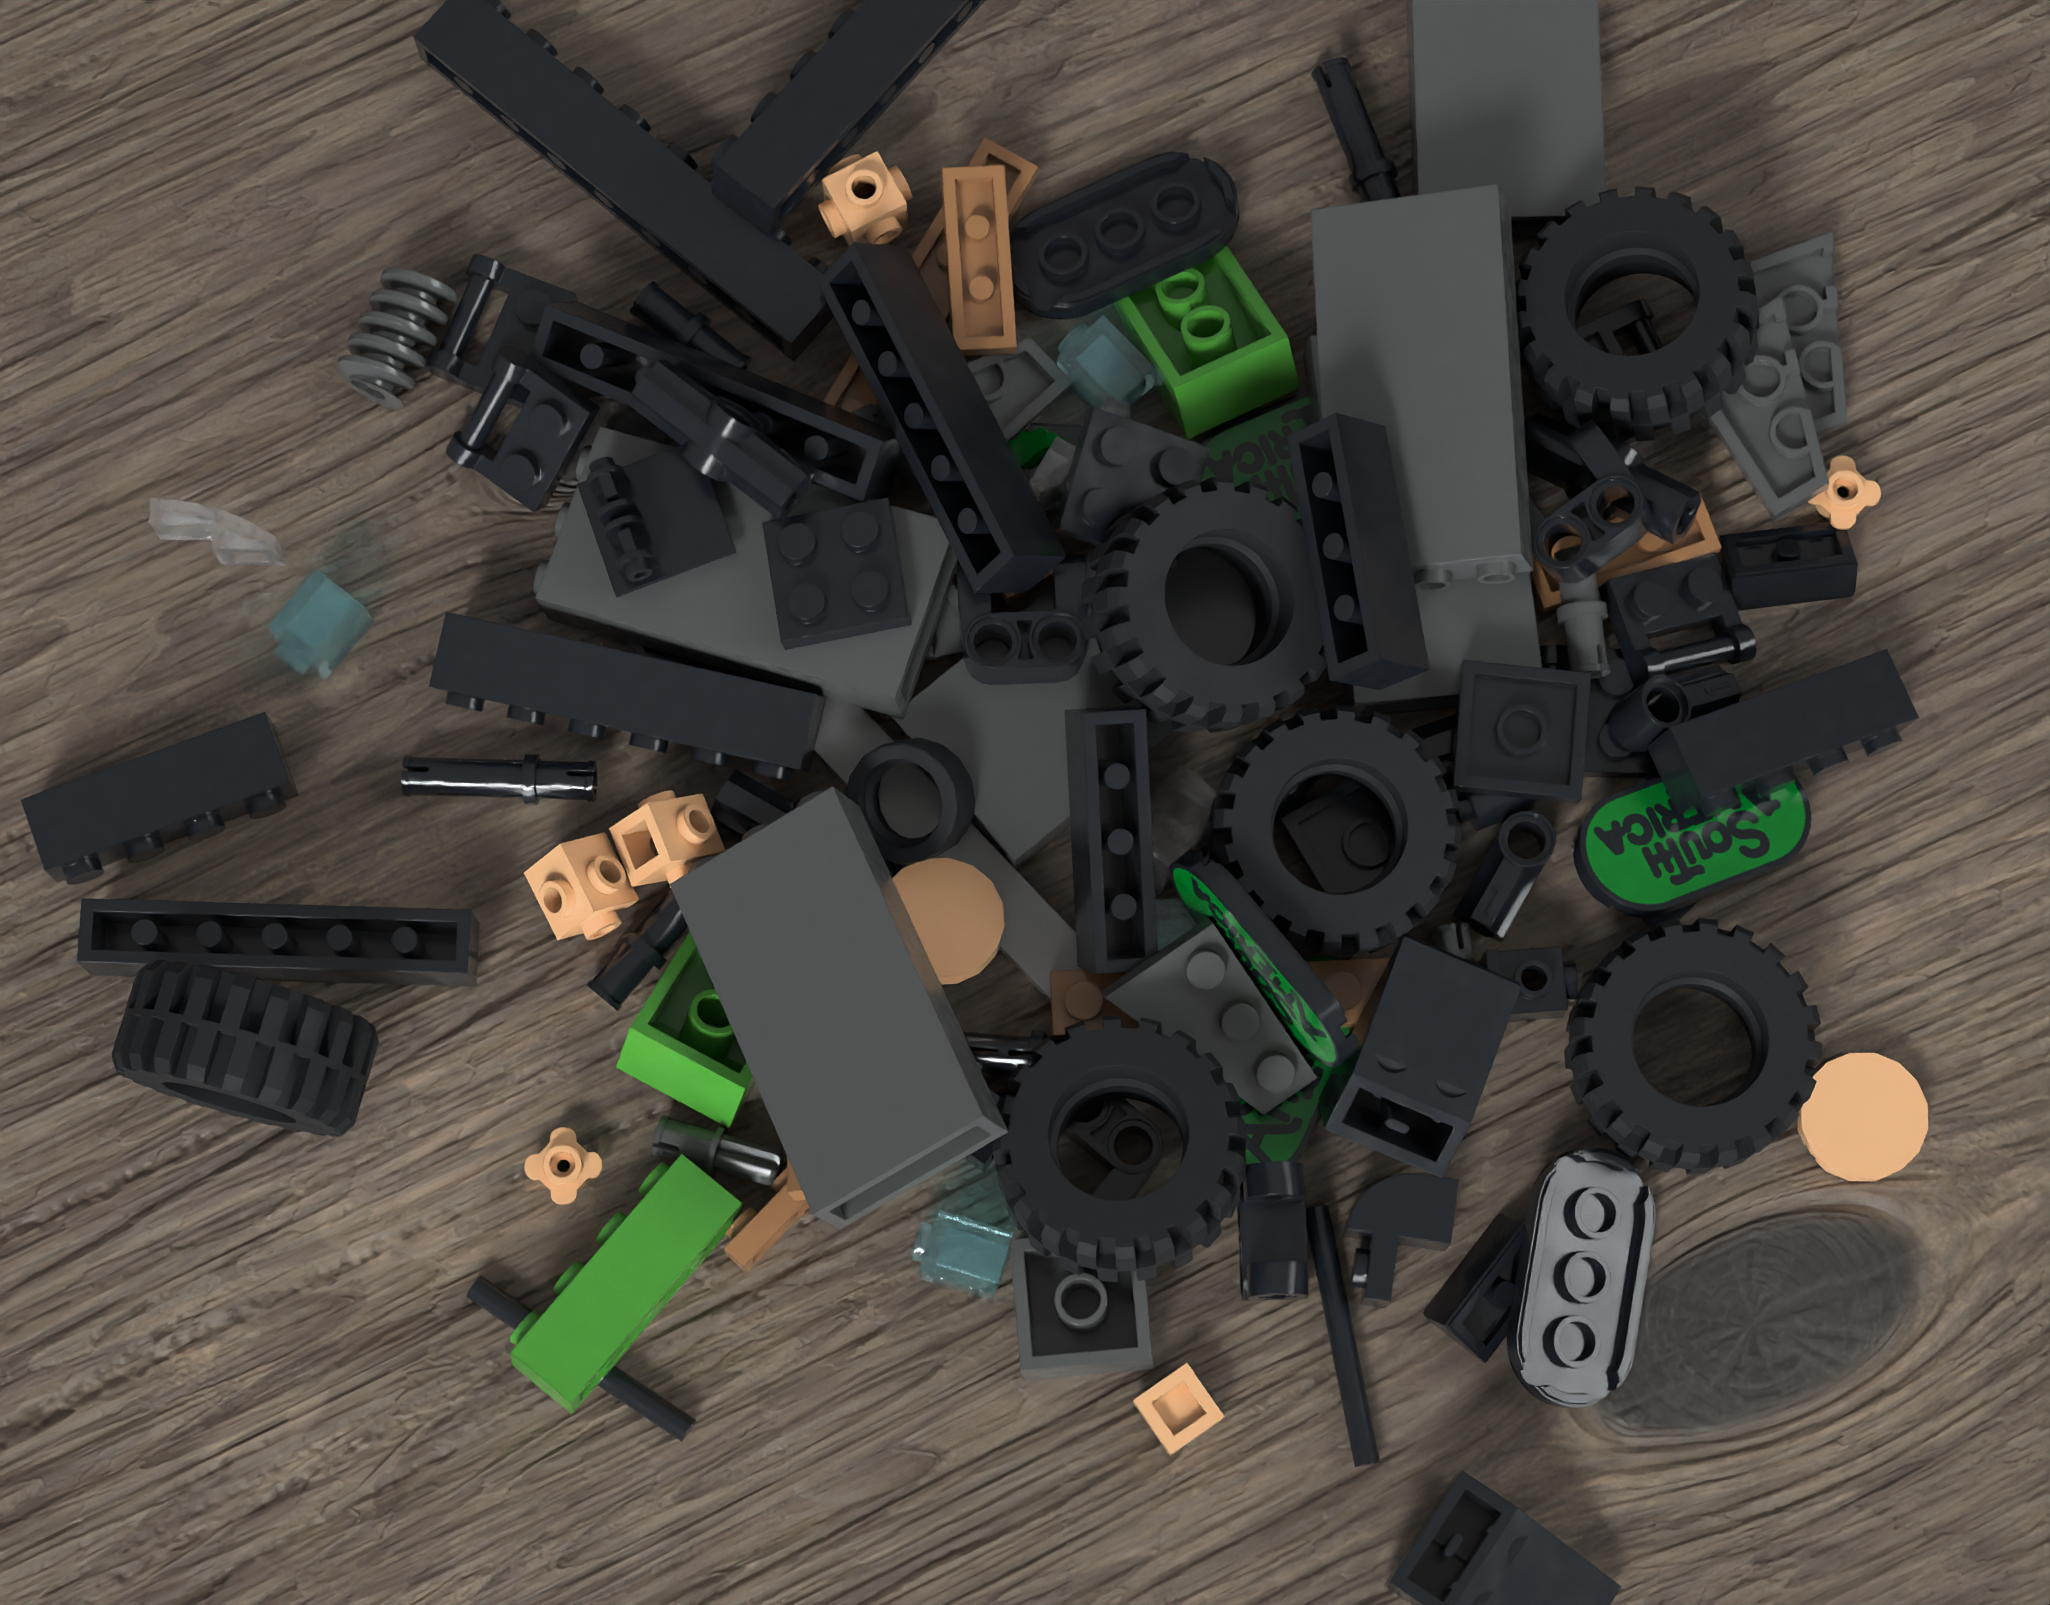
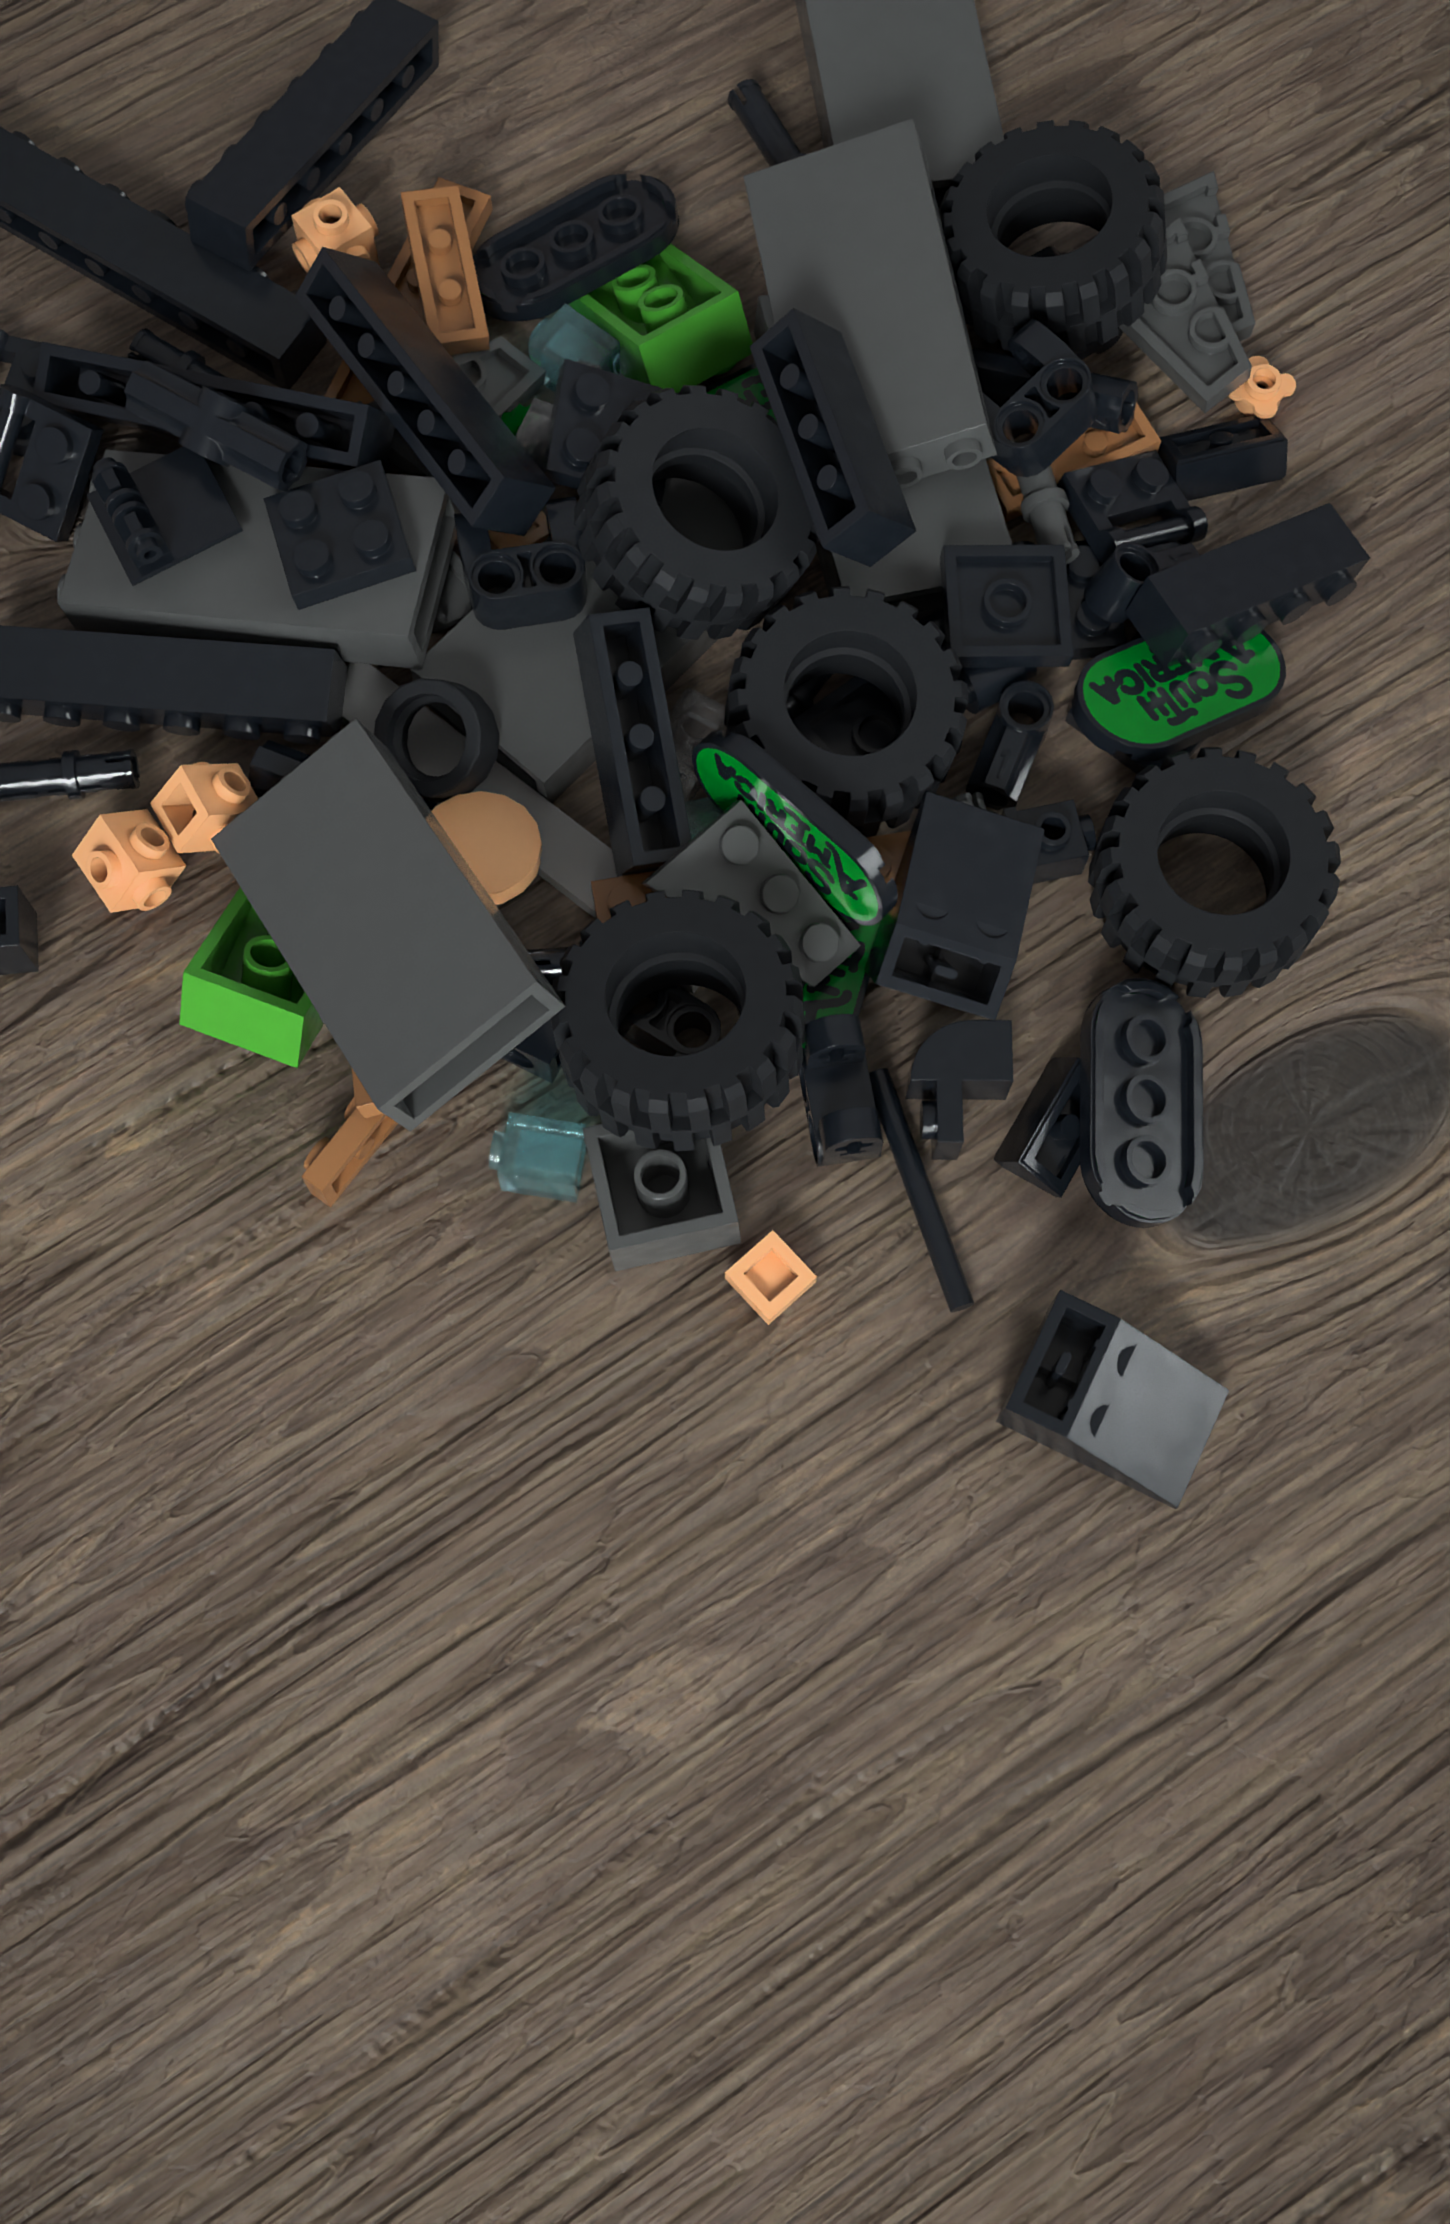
camera: 10 degrees left, 5 degrees down
(566, 1184) = (144, 1143): light nougat plate -> none
(615, 1382) = (174, 1308): black bar -> none
(625, 1282) = (205, 1226): bright green brick -> none
(640, 952) = (194, 917): black pin -> none
(717, 1151) = (287, 1092): dark grey axle -> none
(1864, 1117) = (1382, 925): light nougat tile -> none

